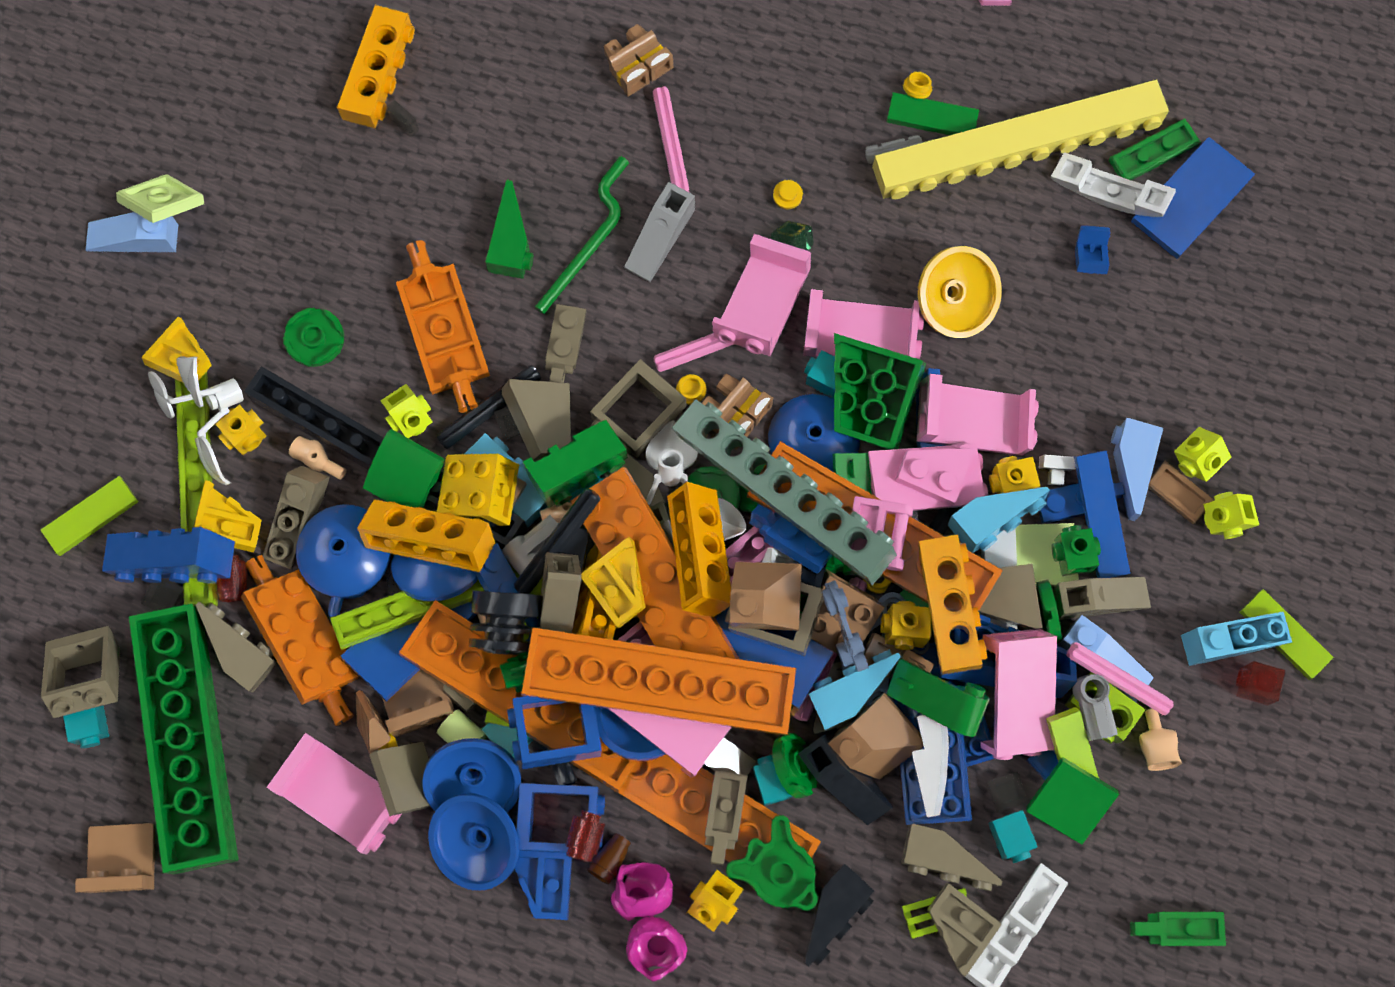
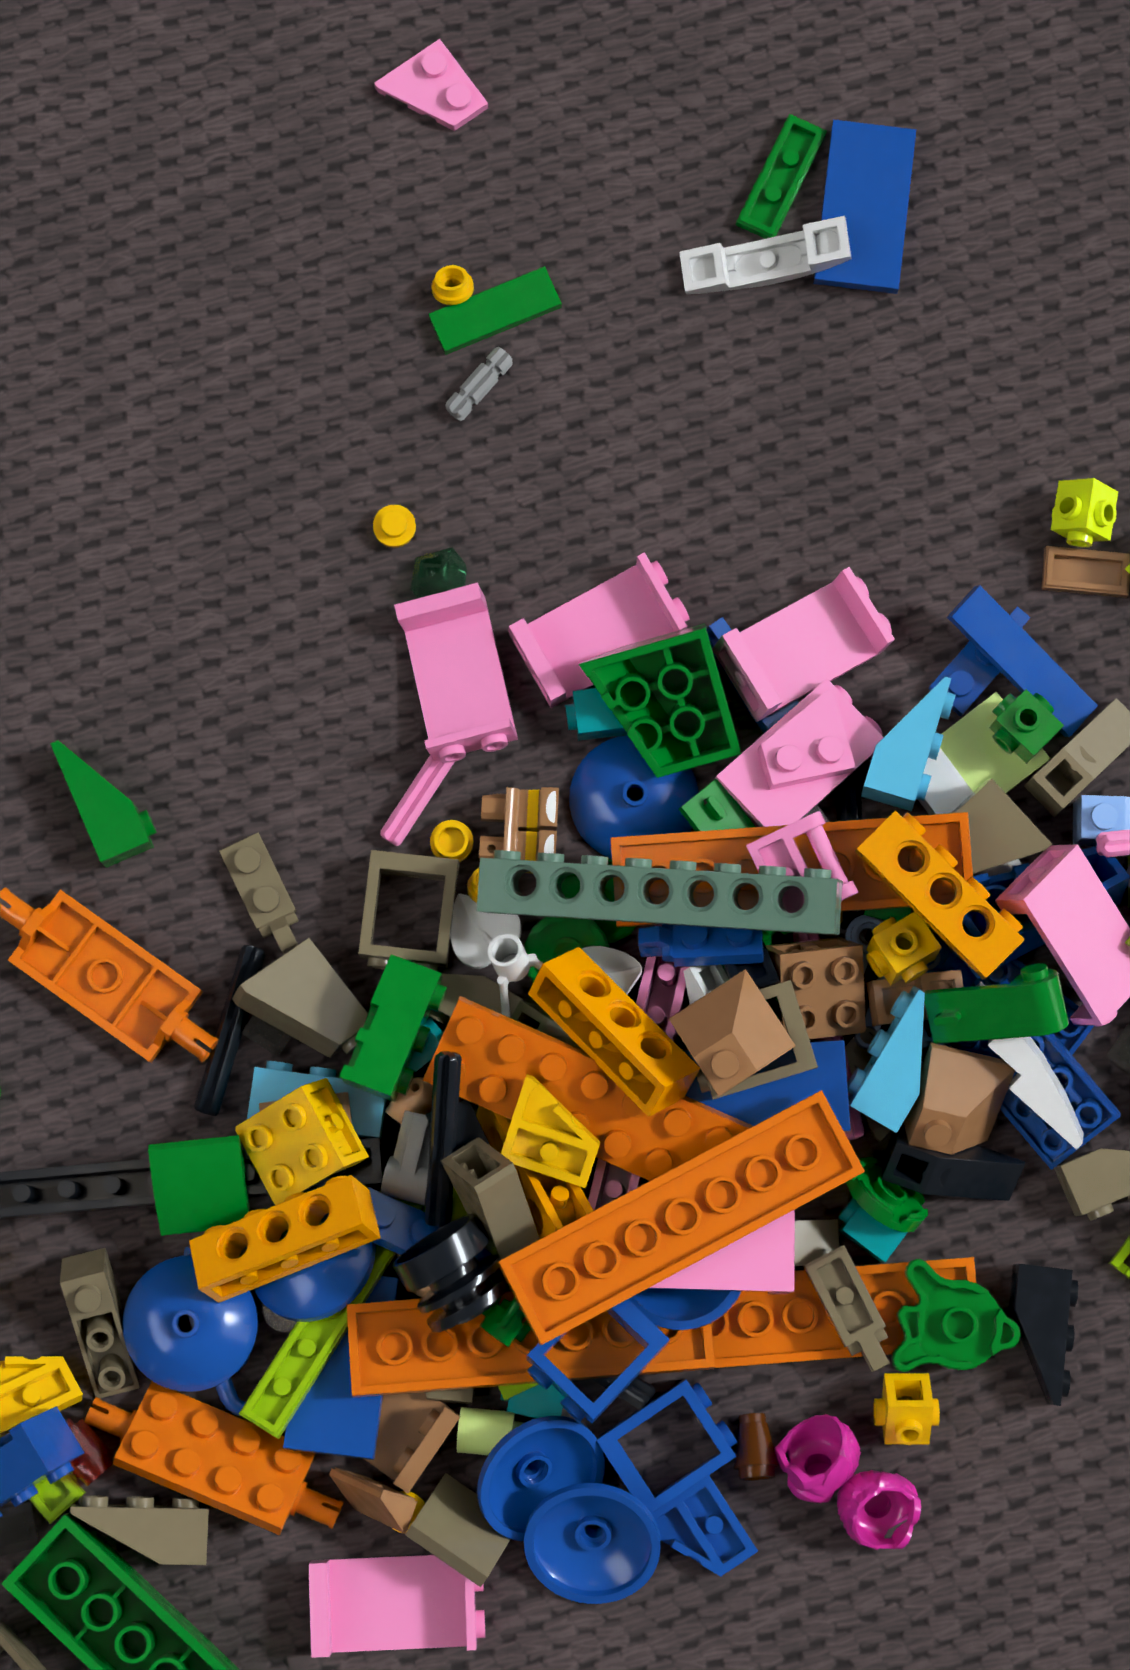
camera: 40 degrees left, 5 degrees up
(314, 456) = (61, 1237): light nougat piece -> none
(407, 412) = (140, 1107): neon yellow brick -> none
(584, 836) = (715, 1446): clear red brick -> none
(596, 239) = (206, 739): green piece -> none
(638, 60) = (98, 482): medium nougat hips -> none
(660, 231) = (279, 679): light grey slope -> none
(670, 138) = (207, 556): bright pink axle -> none
(852, 648) = (858, 1024): sand blue plant -> none
(974, 292) = (699, 506): yellow dish -> none
(1014, 475) = (901, 674): yellow brick -> none
(1020, 139) = (618, 272): light yellow brick -> none
(1048, 609) = (1042, 815): green tile -> none
(1056, 467) = (933, 640): white tile -> none
(1092, 250) = (795, 351): blue bracket -> none
(1134, 460) = (1013, 569): light blue slope -> none

